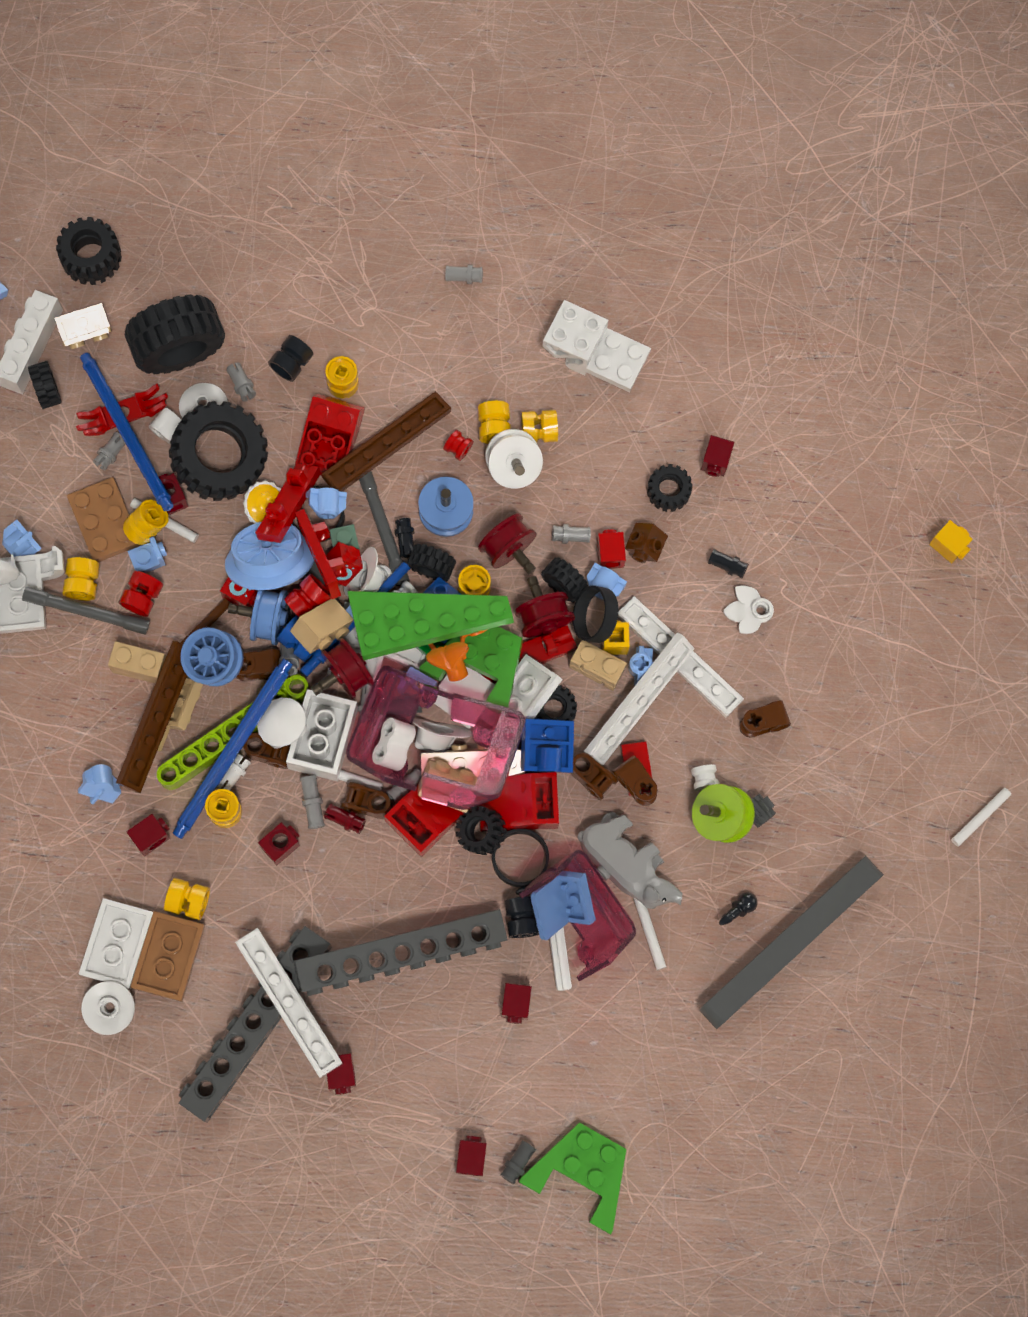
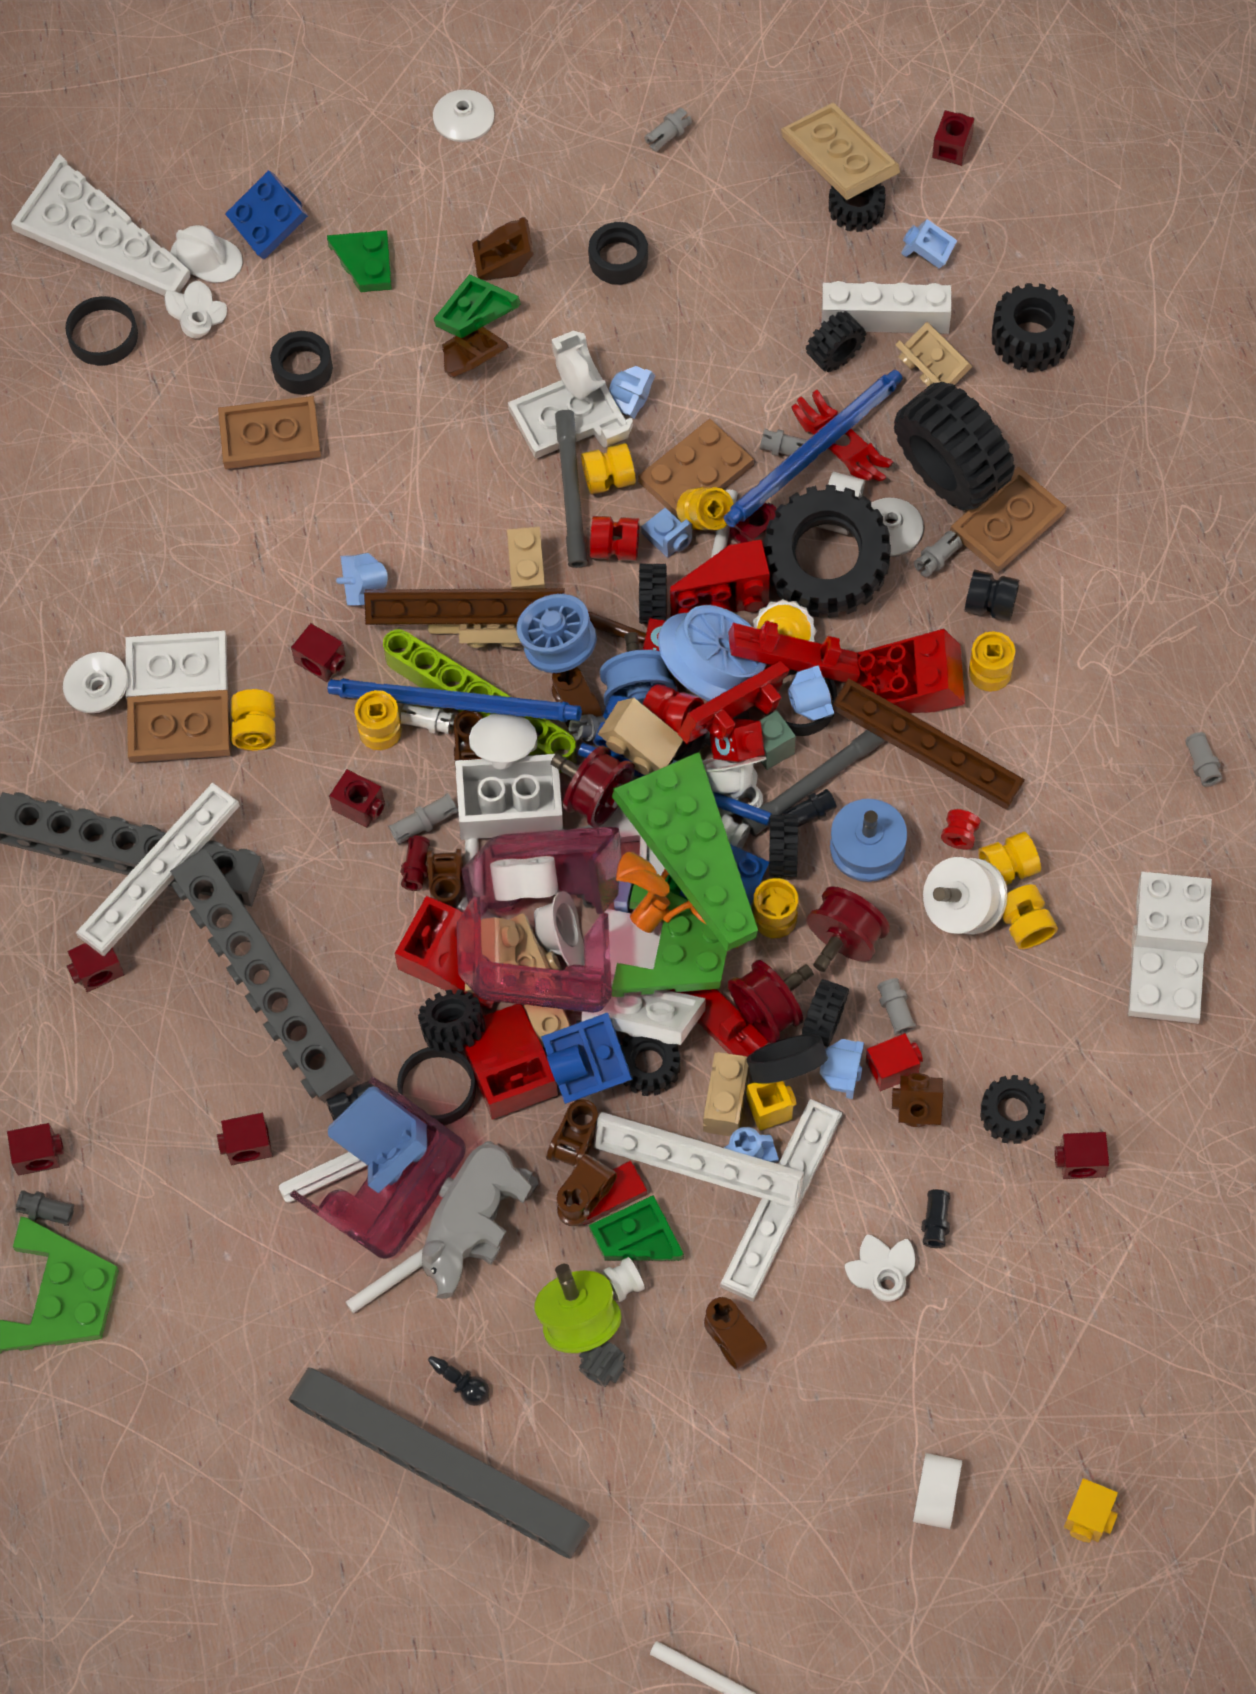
camera: 80 degrees right, 10 degrees down
(199, 582) = (652, 592): none -> black tyre
(213, 517) = (730, 579): none -> red slope
(242, 330) = (1008, 520): none -> medium nougat plate
(674, 758) = (637, 1233): none -> green wing
(909, 629) = (937, 1491): none -> white axle

